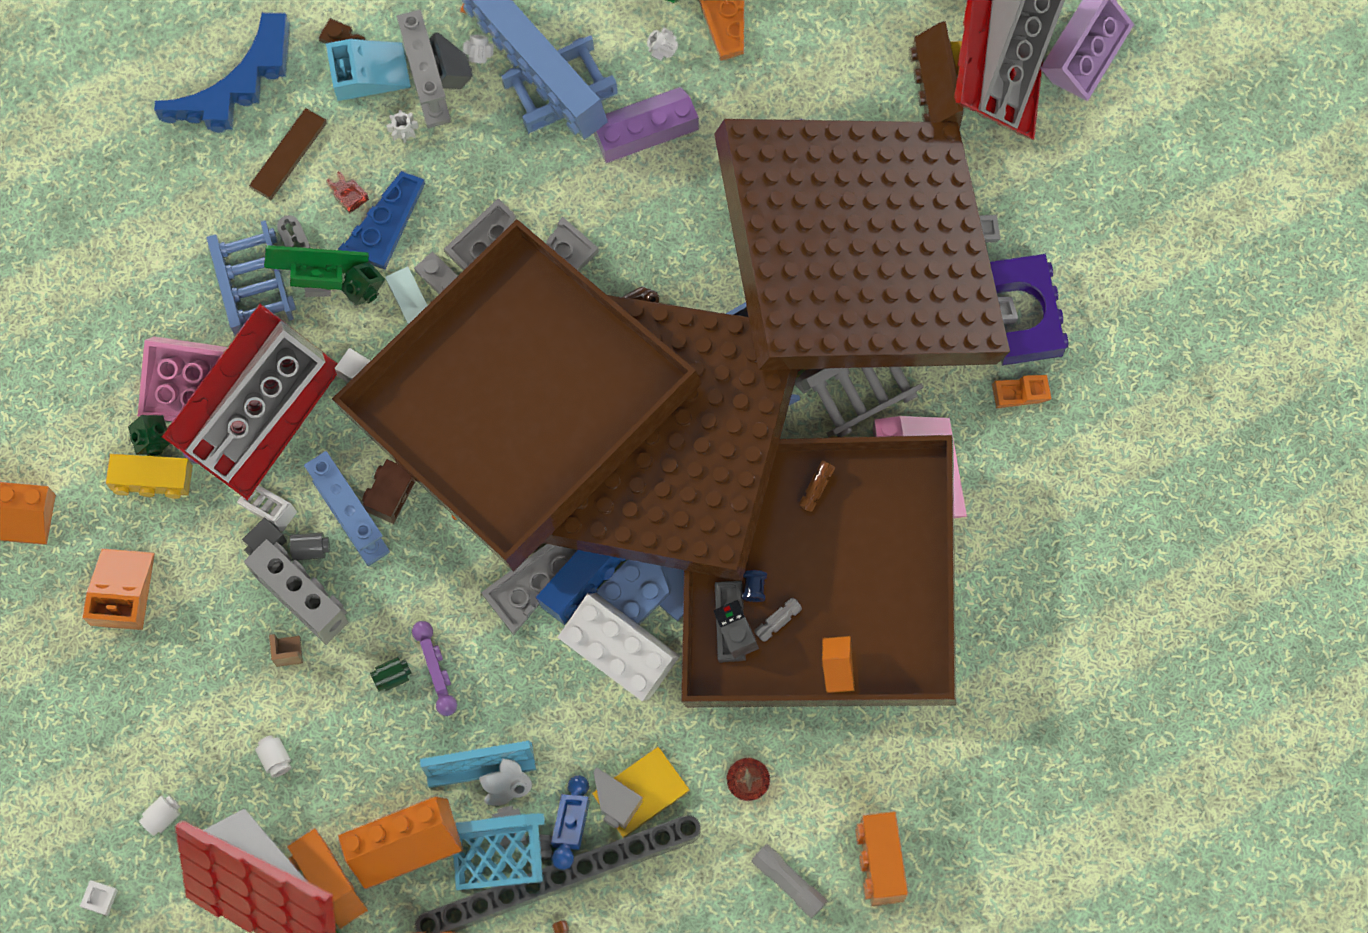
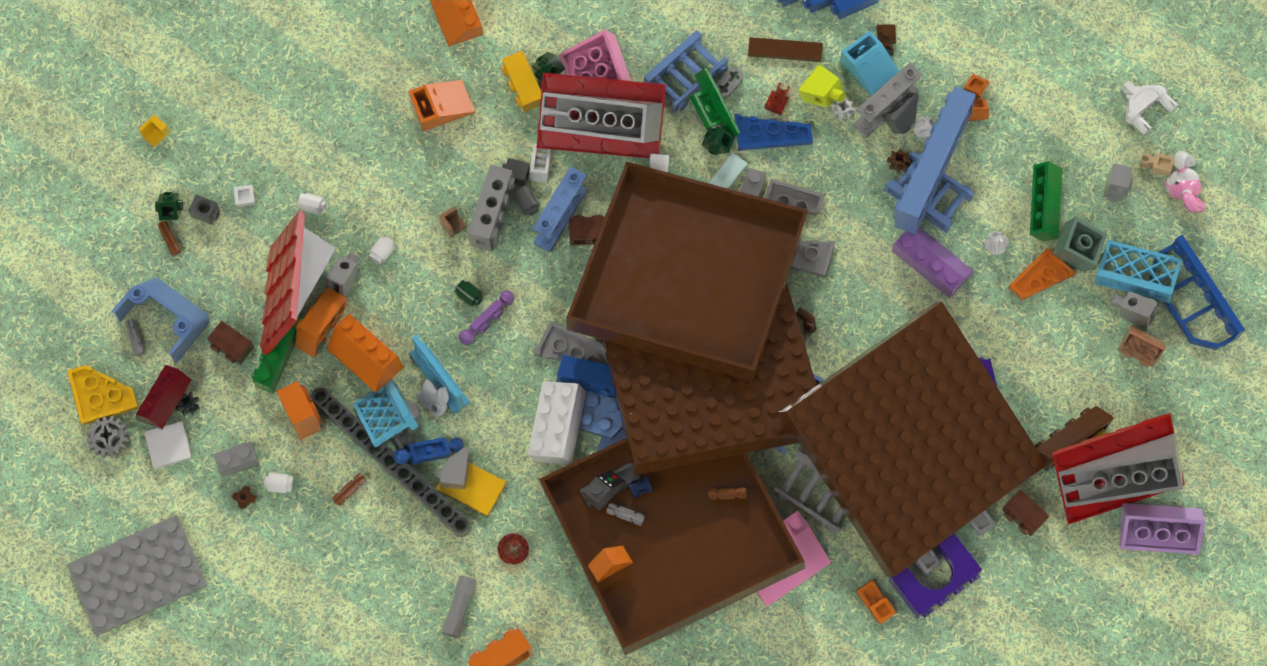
camera: 60 degrees right, 0 degrees up
(279, 818) = (343, 274): none -> light grey torso
(364, 134) = (822, 88): none -> neon yellow torso
(502, 104) = (899, 155): none -> reddish brown gear
(999, 177) = (1025, 513): none -> copper brick

